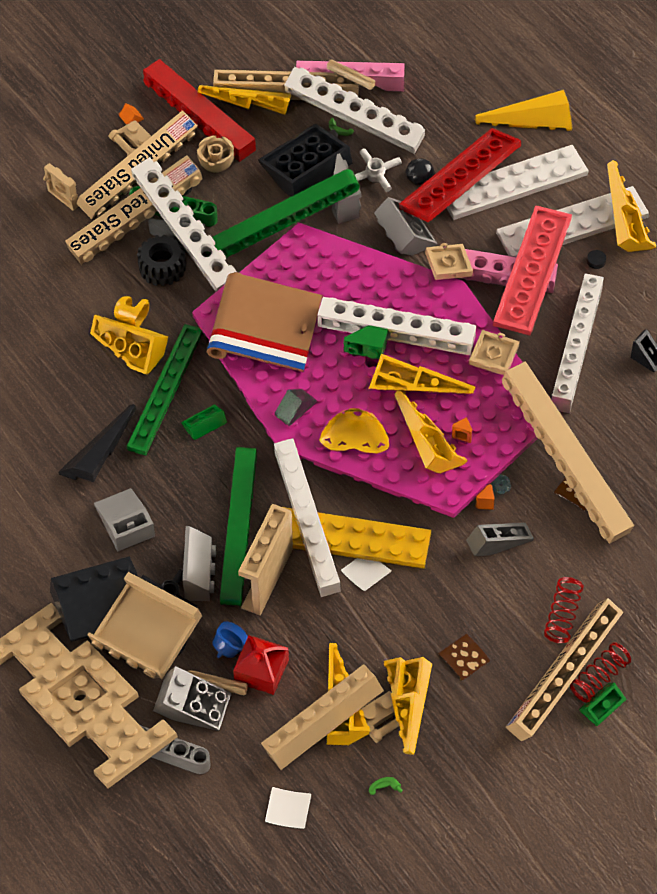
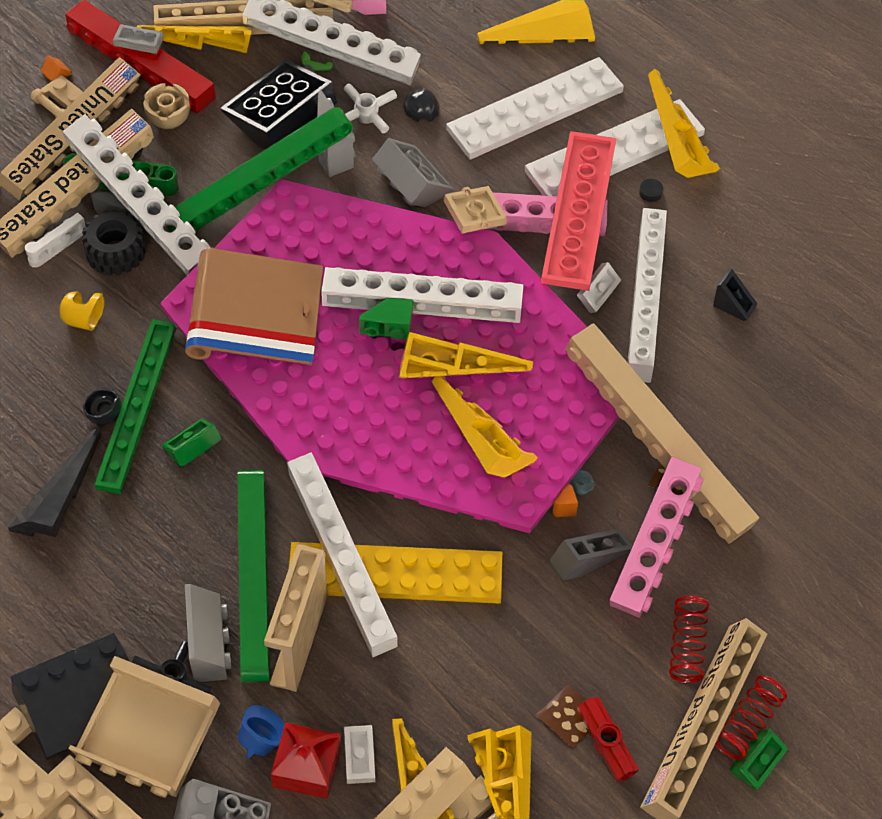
camera: 10 degrees left, 0 degrees up
(116, 254) = (55, 241): none -> white plate
(125, 519) = (103, 582): light grey slope -> none
(133, 344) = (89, 352): yellow wedge -> none
(139, 387) = (102, 406): none -> black hair
(199, 96) = (138, 39): none -> light grey plate
(230, 685) = (267, 793): tan axle -> none
(294, 405) = (306, 409): slope -> none
(301, 665) = (359, 754): none -> white plate
(355, 432) = (389, 436): yellow piece -> none
(365, 572) = (425, 617): white sticker -> none
(459, 175) = (470, 105): red plate -> none
(462, 430) = (526, 419): orange slope -> none
(493, 686) = (616, 753): none -> red piece
(494, 352) = (549, 316): tan plate -> none
(541, 333) = (602, 285): none -> white plate
(571, 484) = (676, 474): none -> bright pink brick

